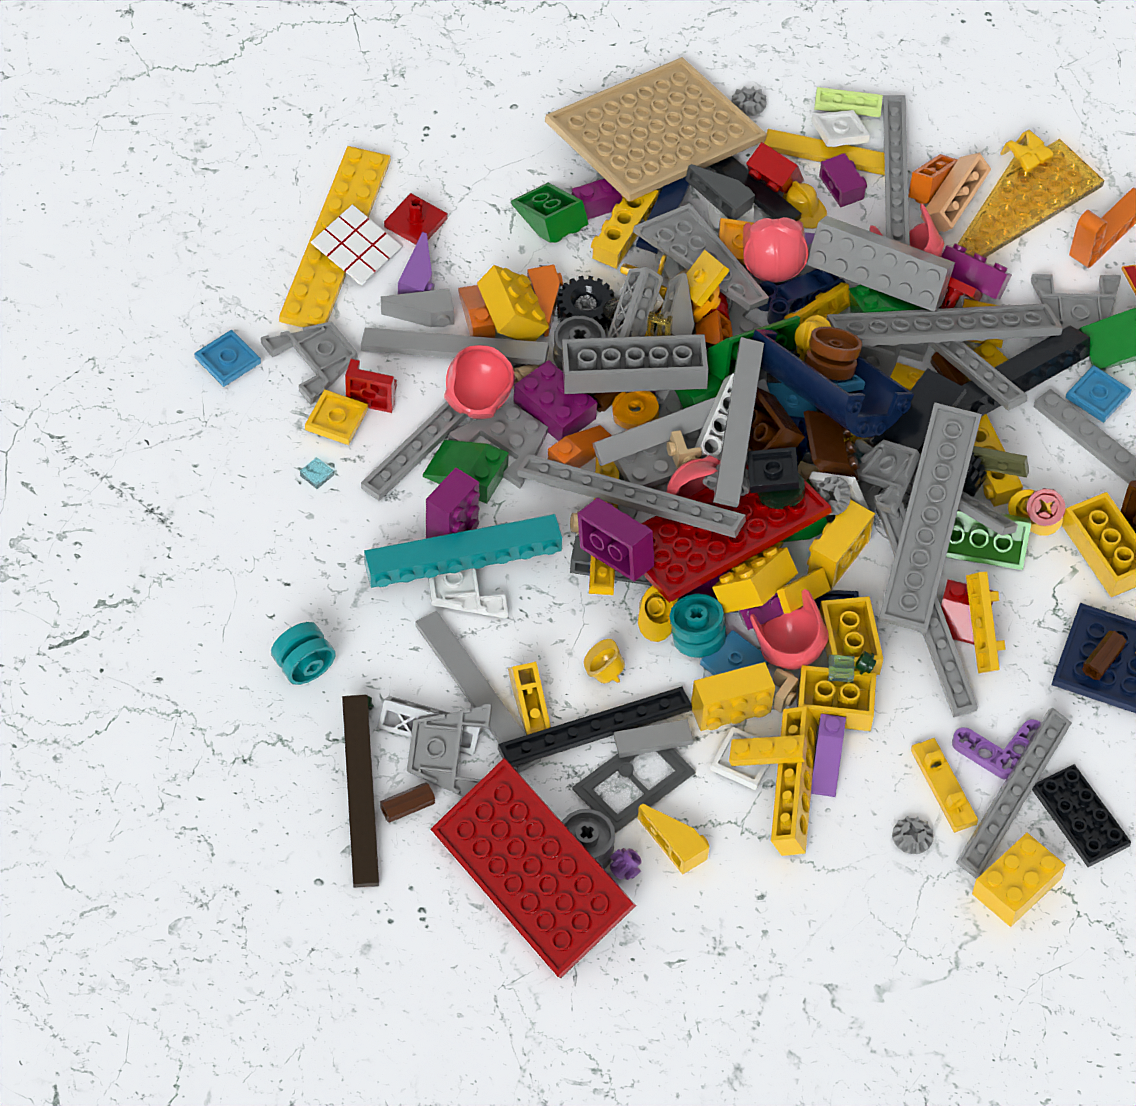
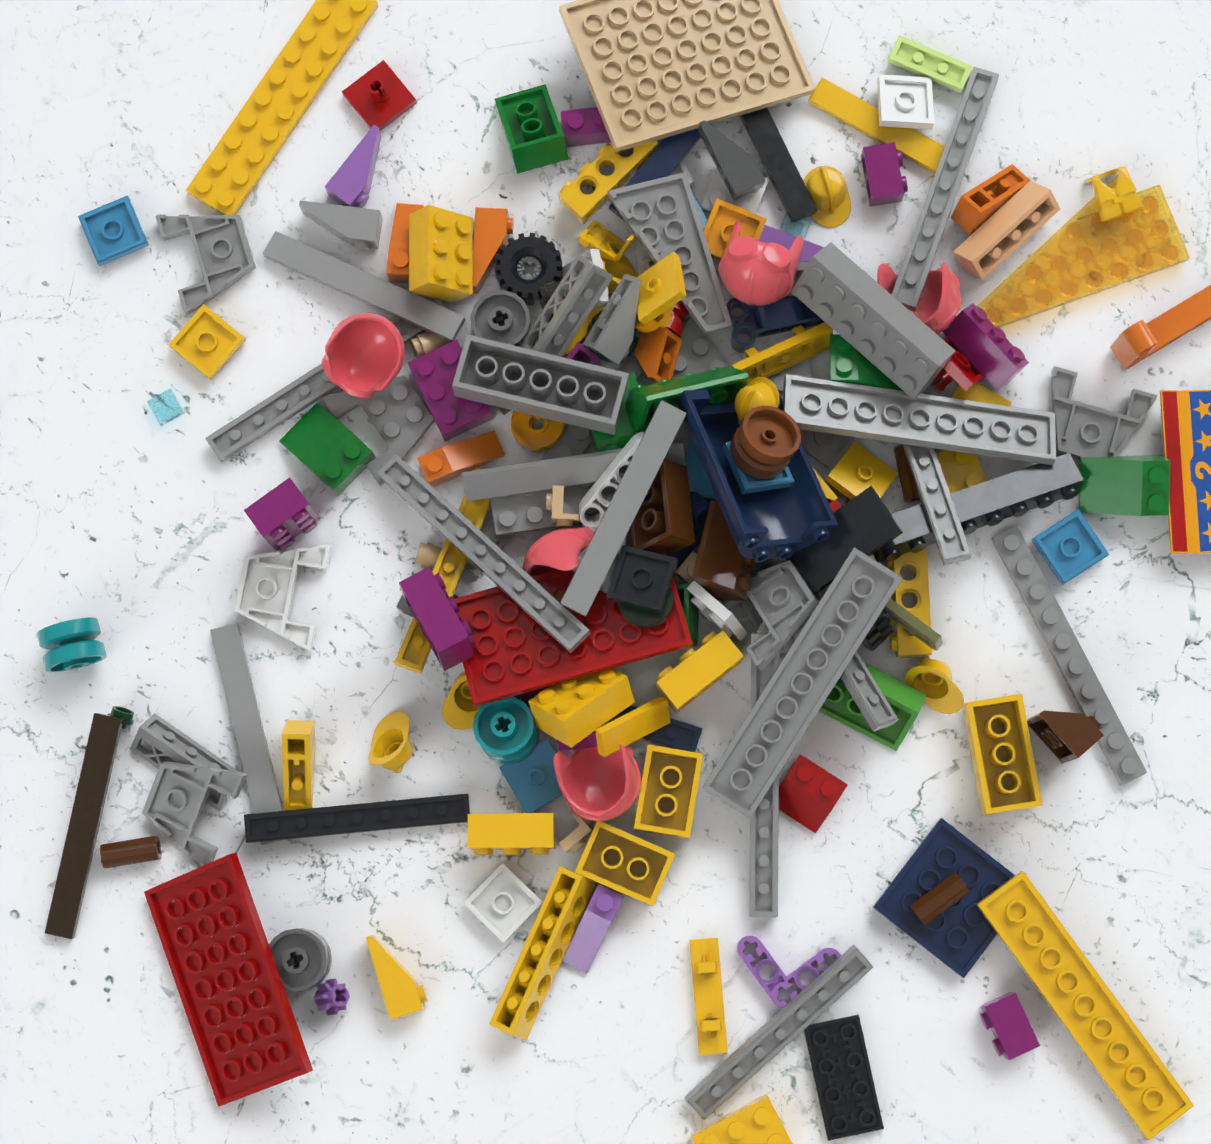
camera: 25 degrees right, 25 degrees up
(356, 244) = (299, 117): white piece -> none
(370, 387) = (239, 316): red piece -> none
(463, 551) = (281, 564): teal brick -> none
(634, 780) = (379, 891): dark grey door -> none
(653, 738) = (414, 850): light grey tile -> none
(660, 320) = (585, 354): clear yellow tile -> none
(749, 108) = (812, 41): light grey gear -> none
(768, 750) = (524, 915): yellow plate -> none
(773, 168) = (804, 144): red slope -> none
(841, 668) = (637, 839): clear light blue tile -> none
(842, 493) = (709, 630): light grey gear -> none
(865, 663) = (665, 842): dark green plate -> none
(907, 842) = (643, 1037): light grey gear -> none
(982, 622) = (821, 801): yellow hinge -> none
(1044, 517) = (942, 700): gear -> none

